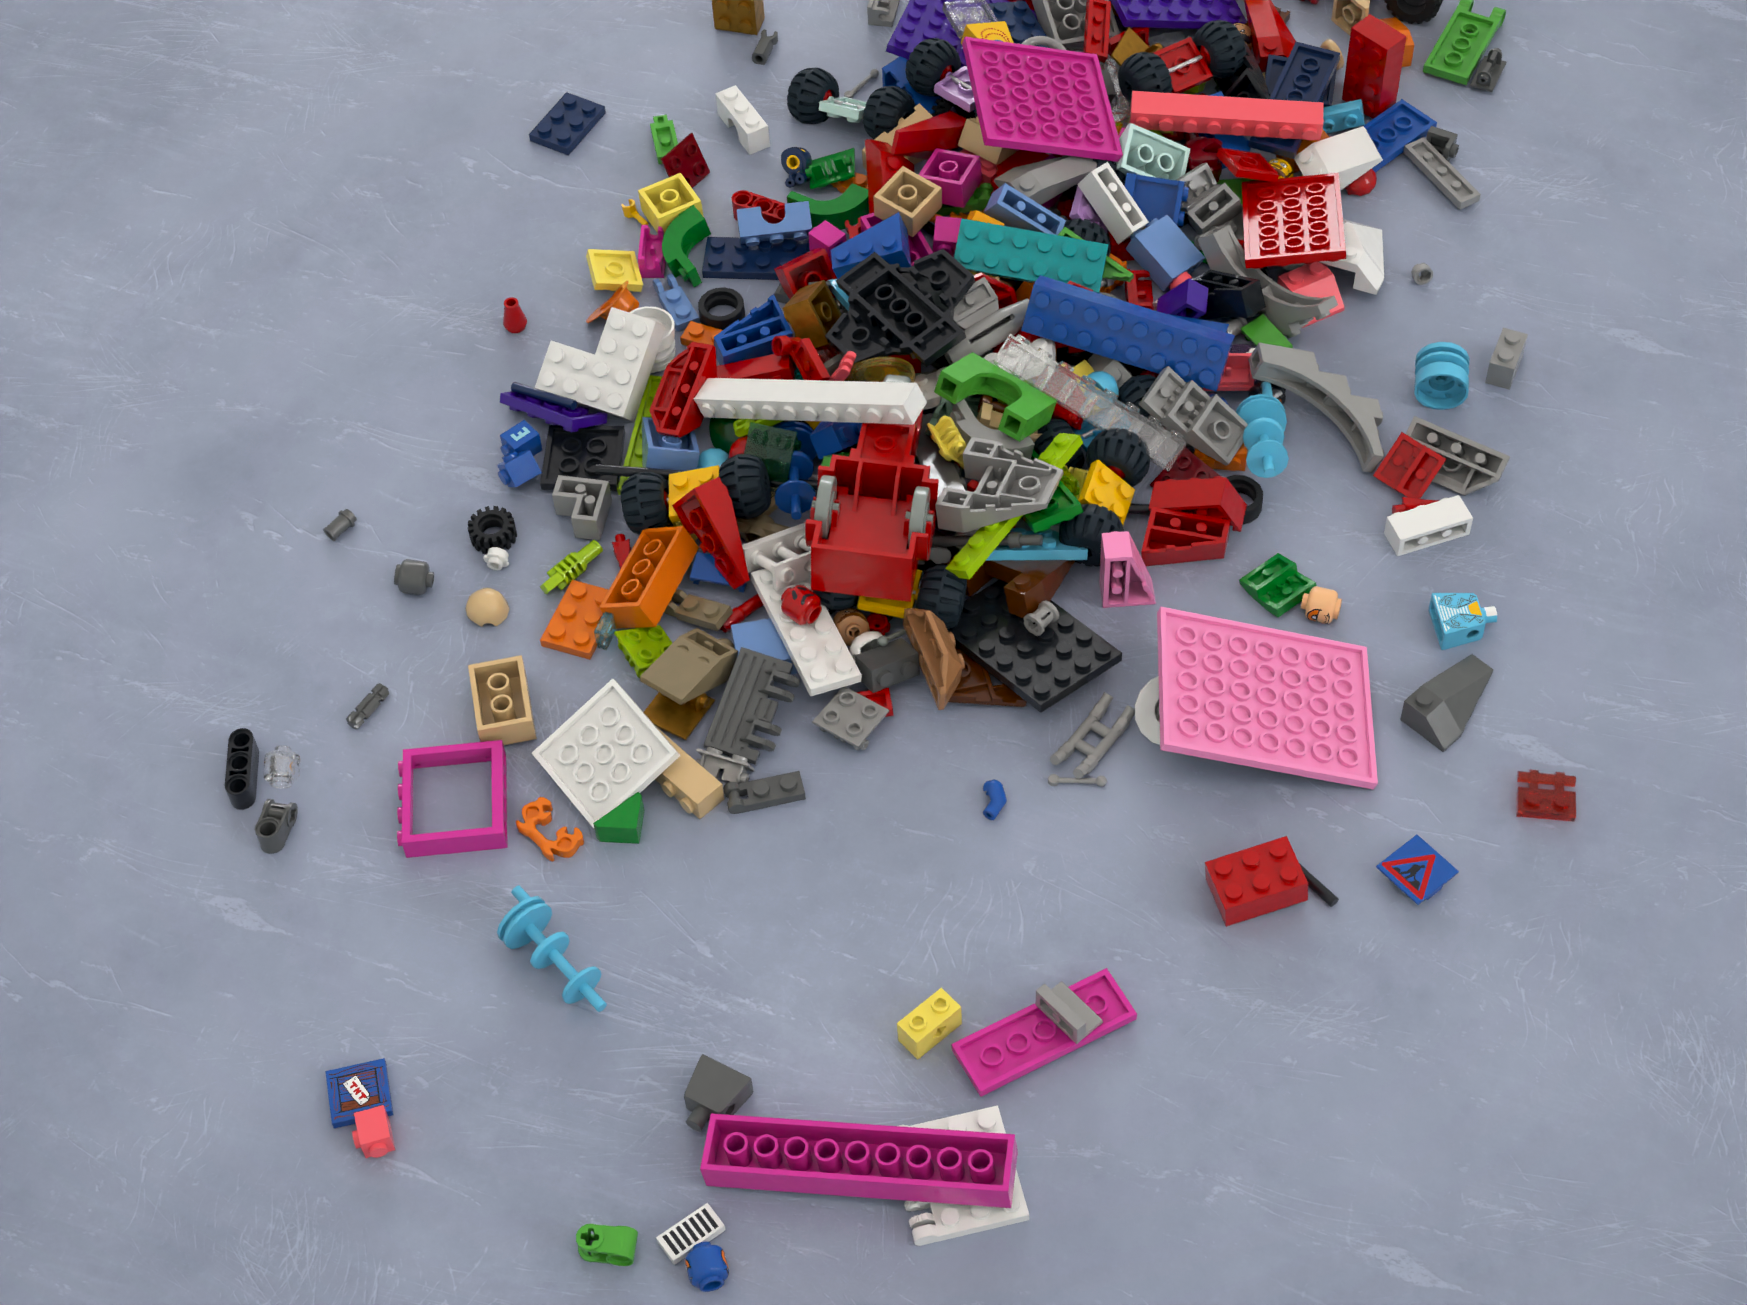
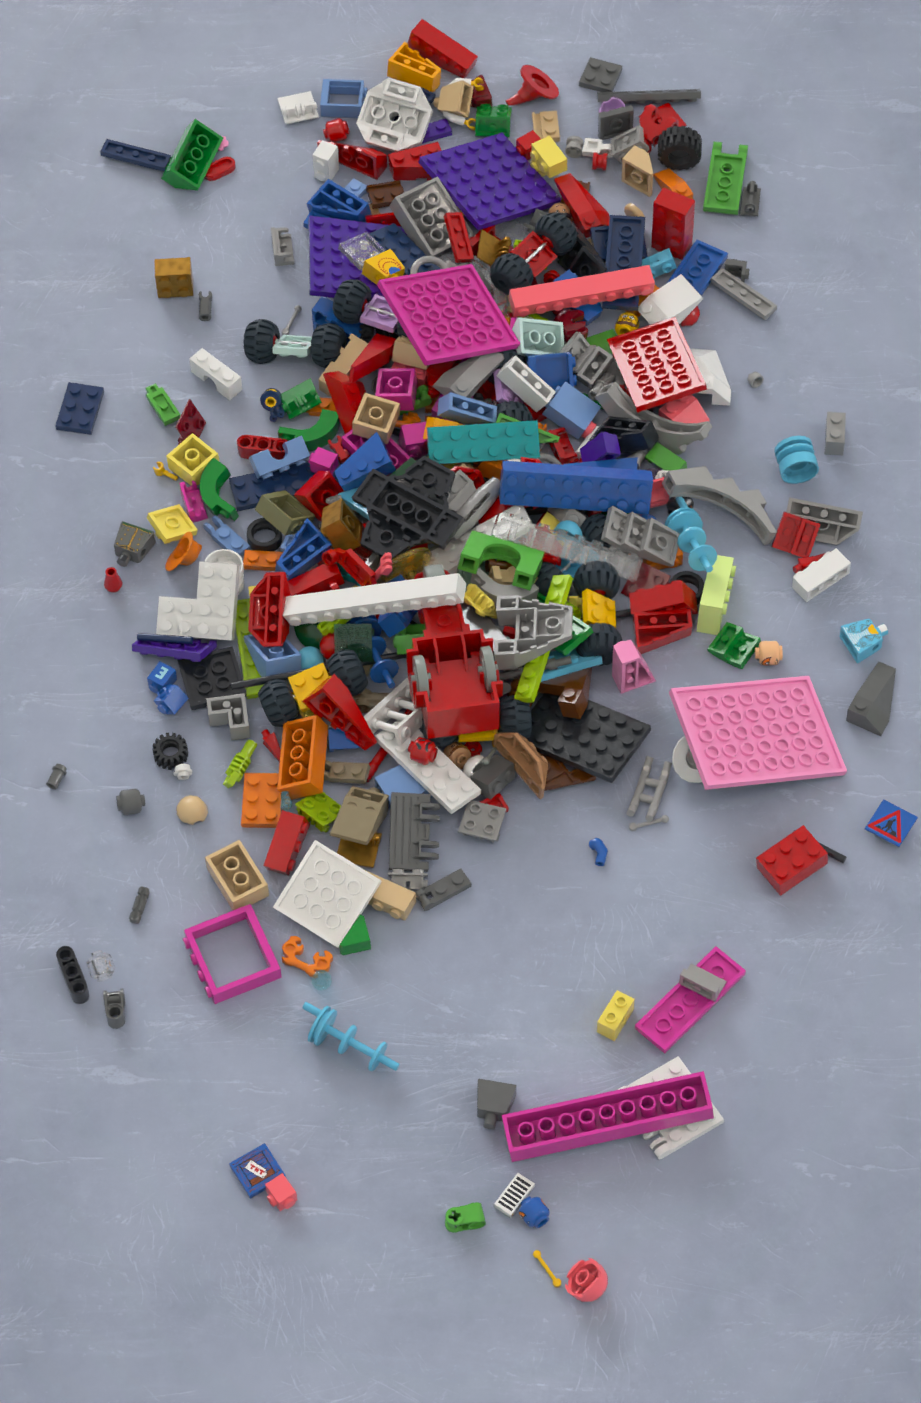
camera: 20 degrees left, 5 degrees up
(554, 864) = (321, 980): none -> clear light blue plate
(558, 282) = (132, 543): none -> dark grey torso
(584, 674) = (286, 843): none -> red wedge
(741, 283) = (283, 511): none -> olive window
(1041, 618) = (588, 716): light grey bush -> none
(1247, 165) = (608, 326): red tile -> none
(1272, 514) = (715, 595): none -> yellowish green wedge

